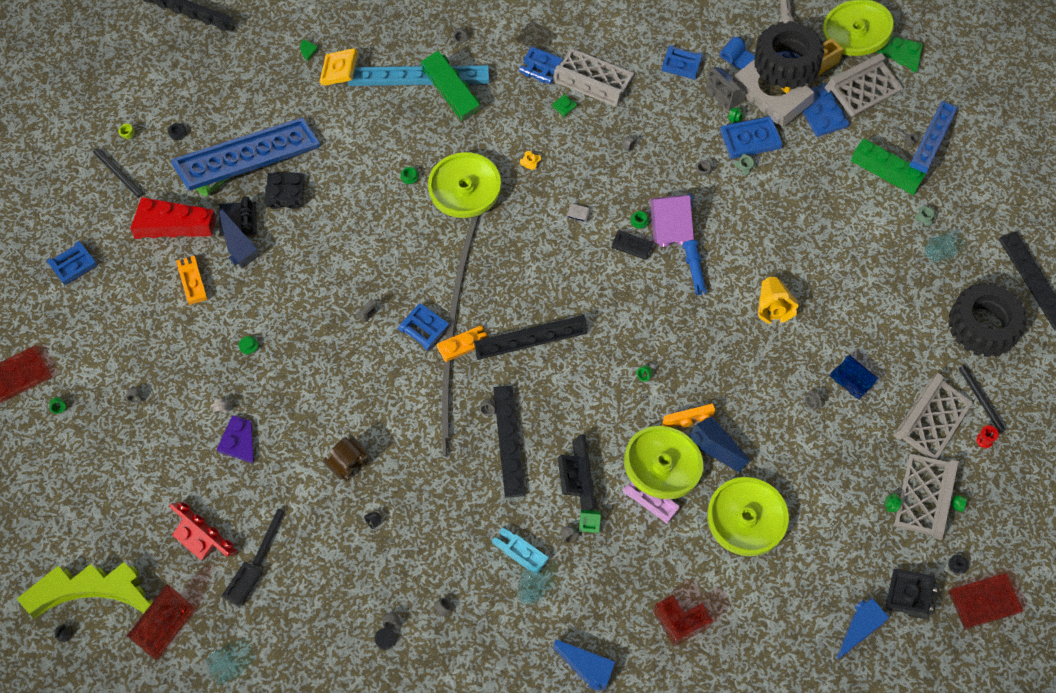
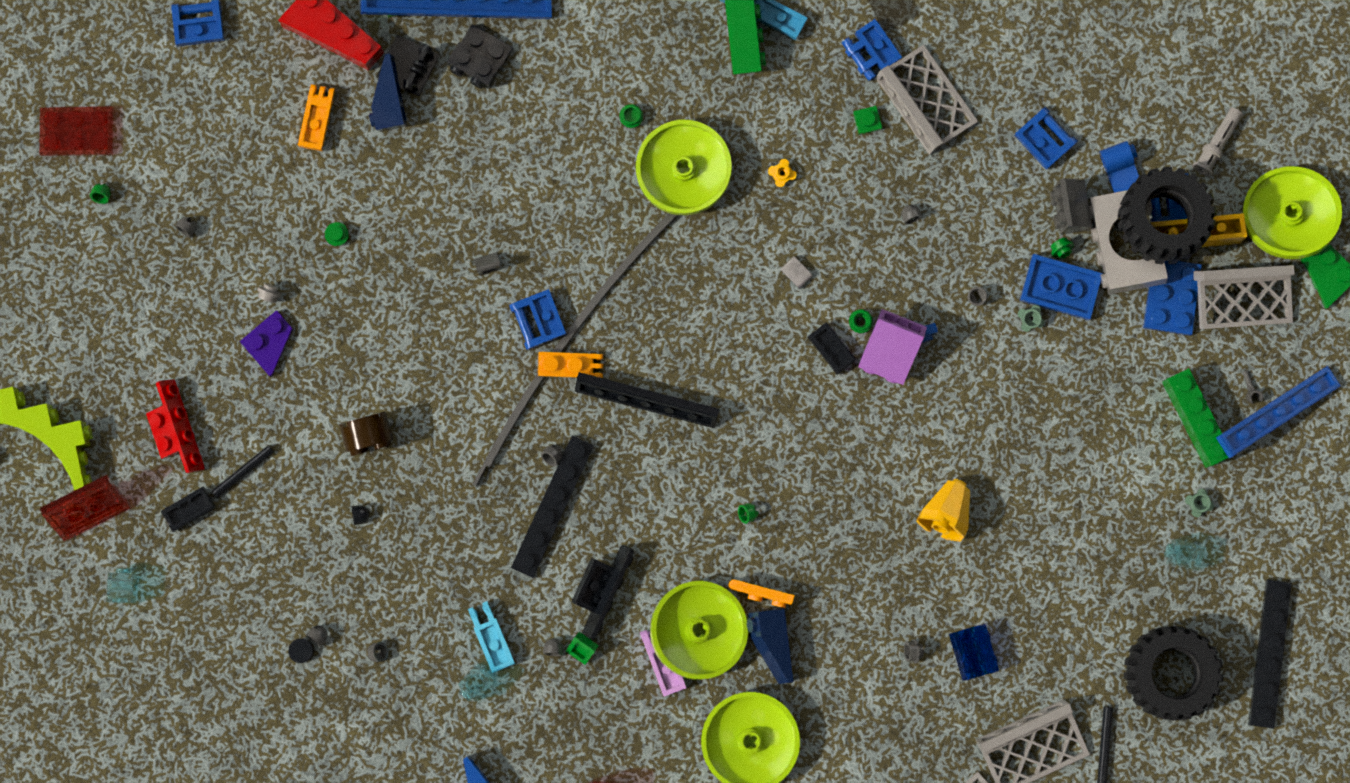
camera: 30 degrees right, 20 degrees up
(693, 259) = (890, 407): blue pin -> none

